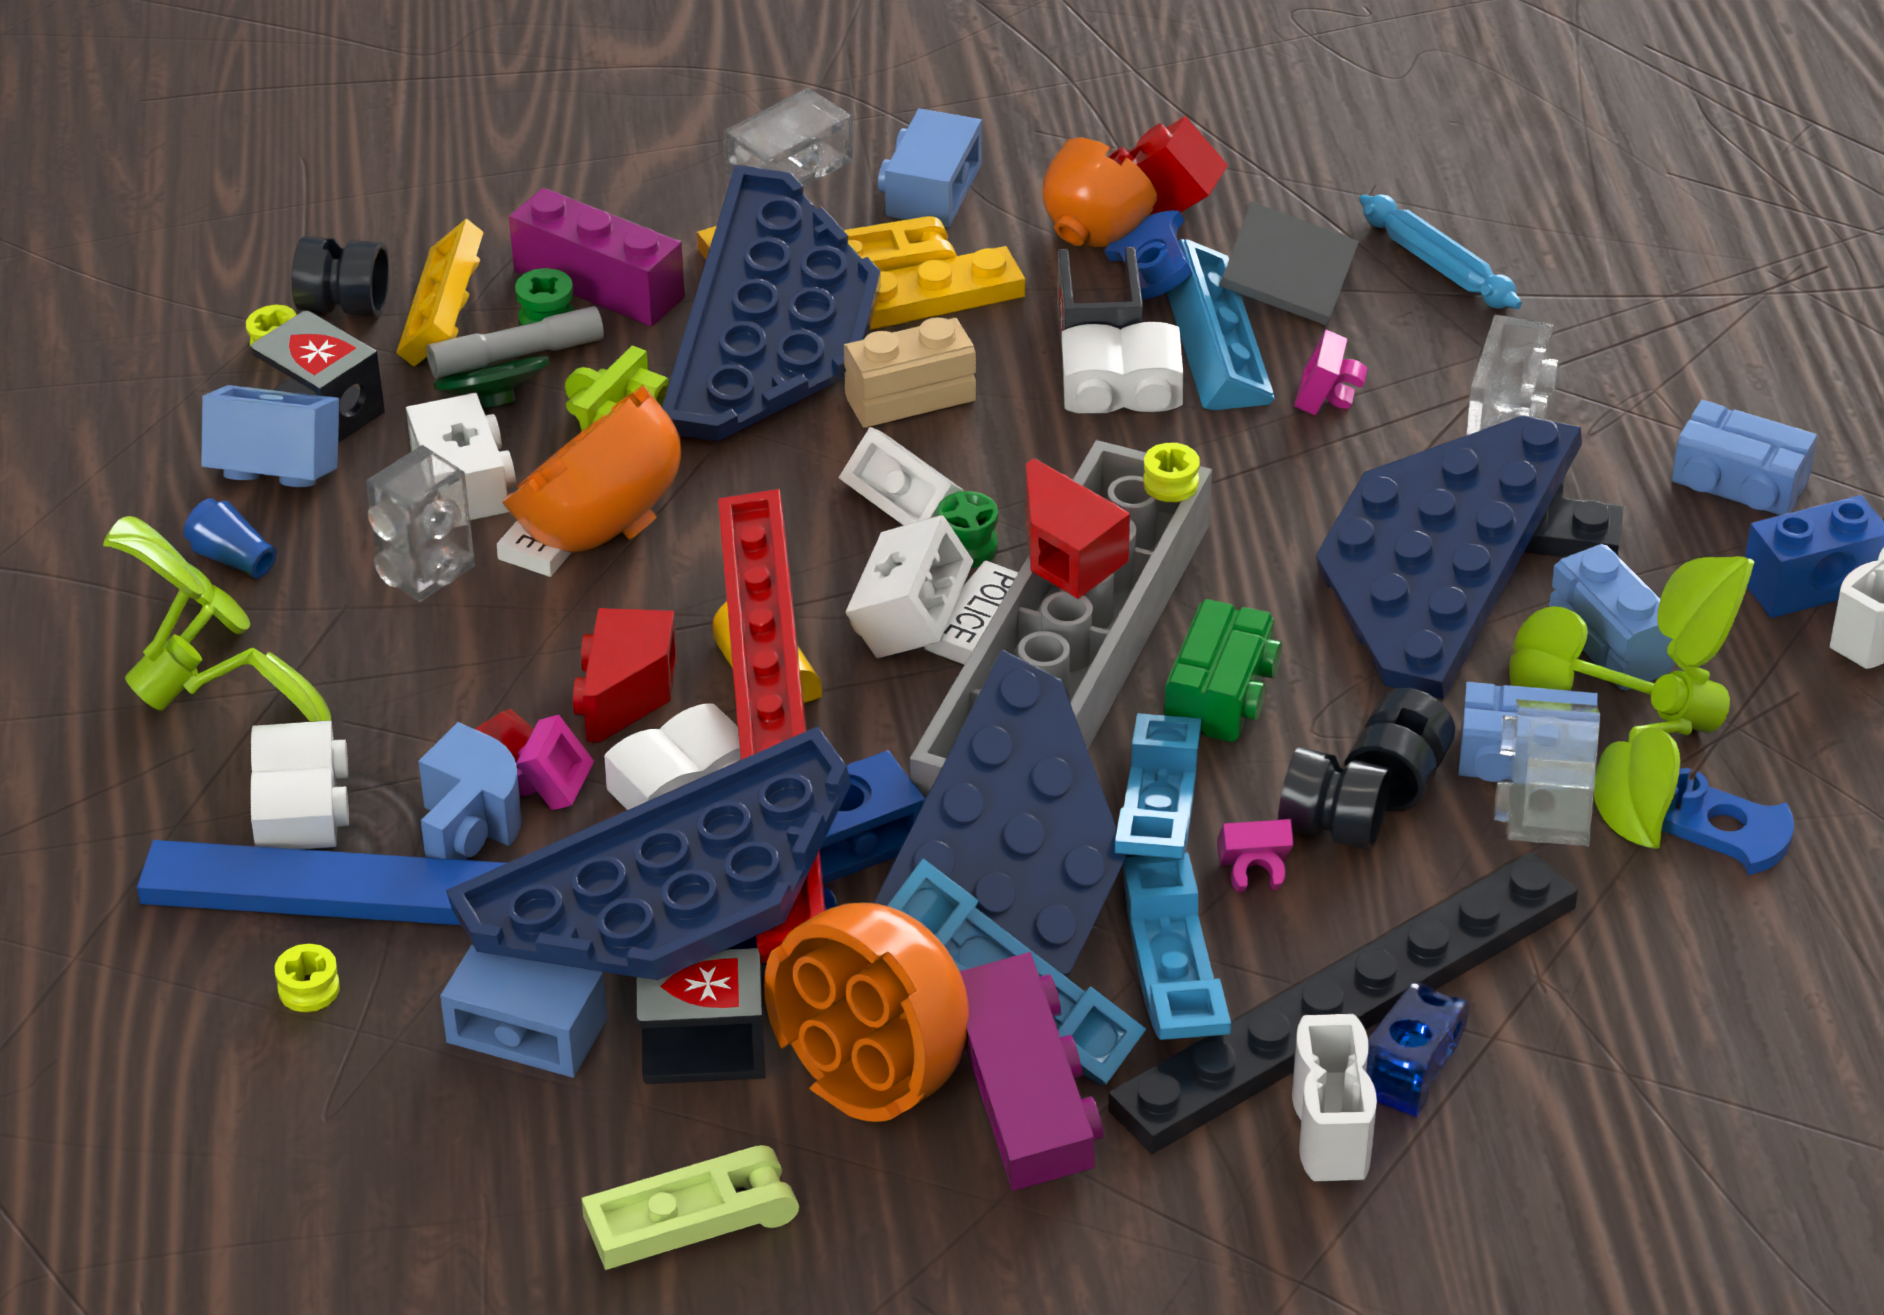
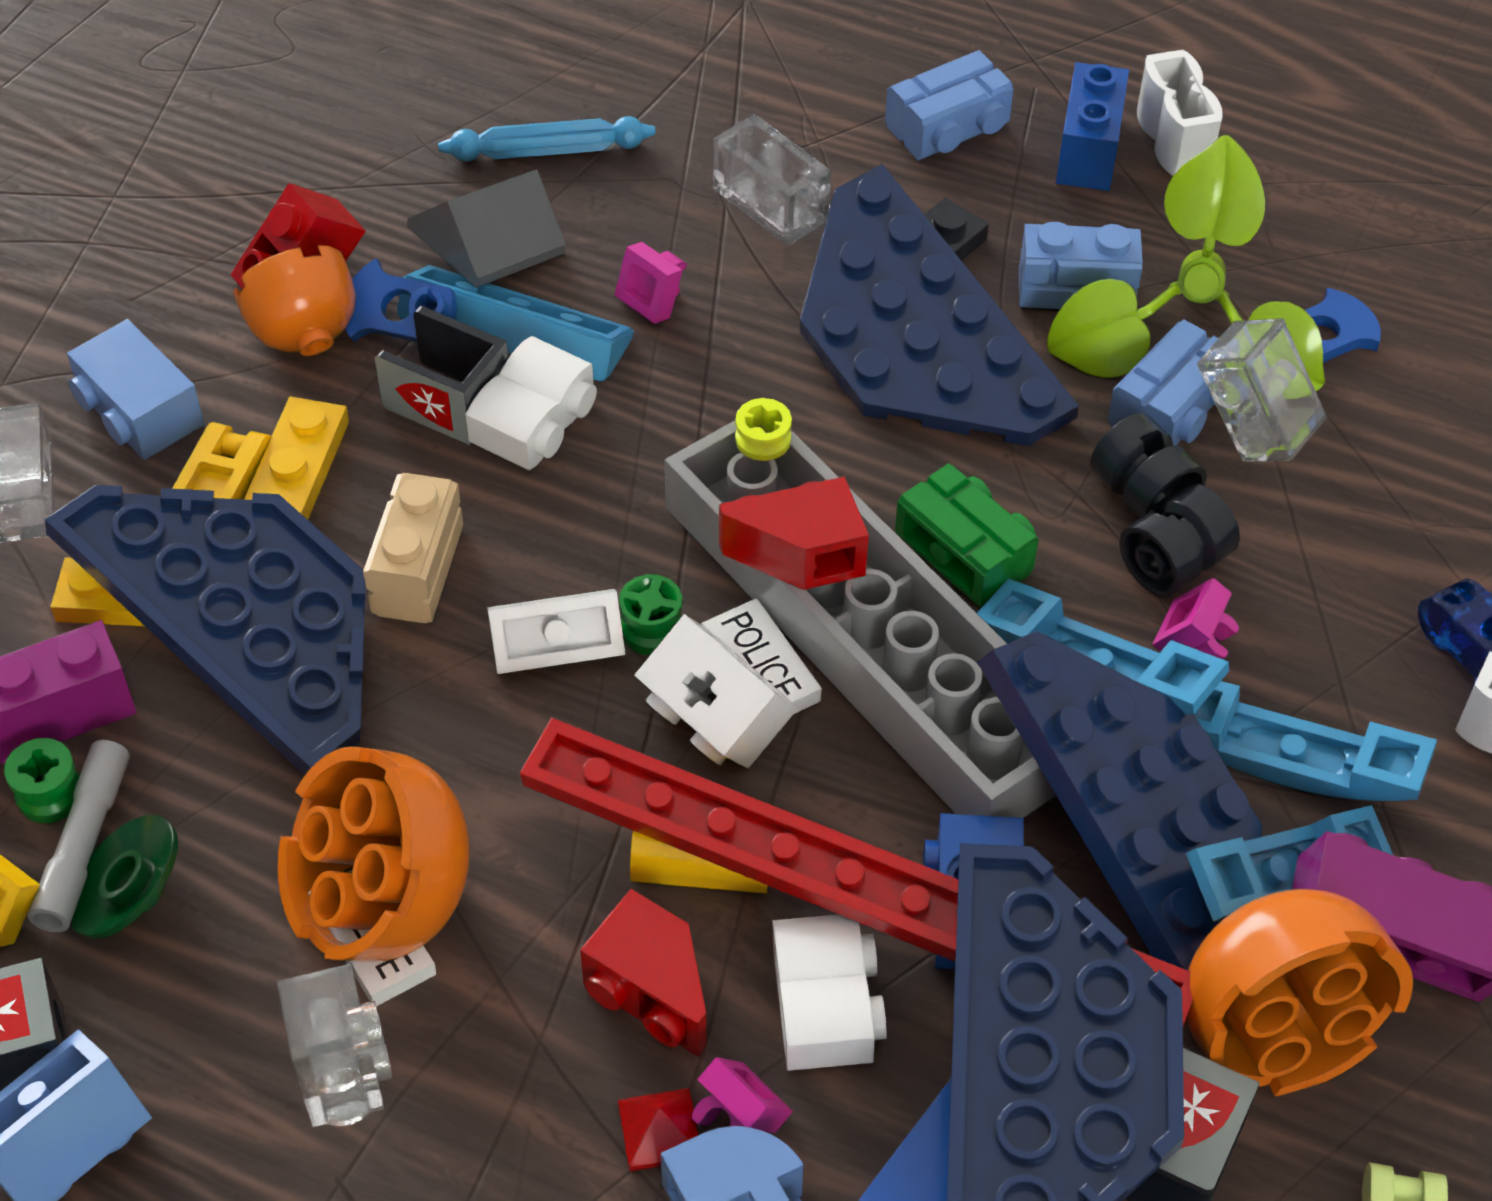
camera: 60 degrees left, 10 degrees up
(470, 441) = (221, 967): white brick -> none
(595, 393) = (243, 769): lime hips -> none
(1368, 983) = (1390, 657): black plate -> none

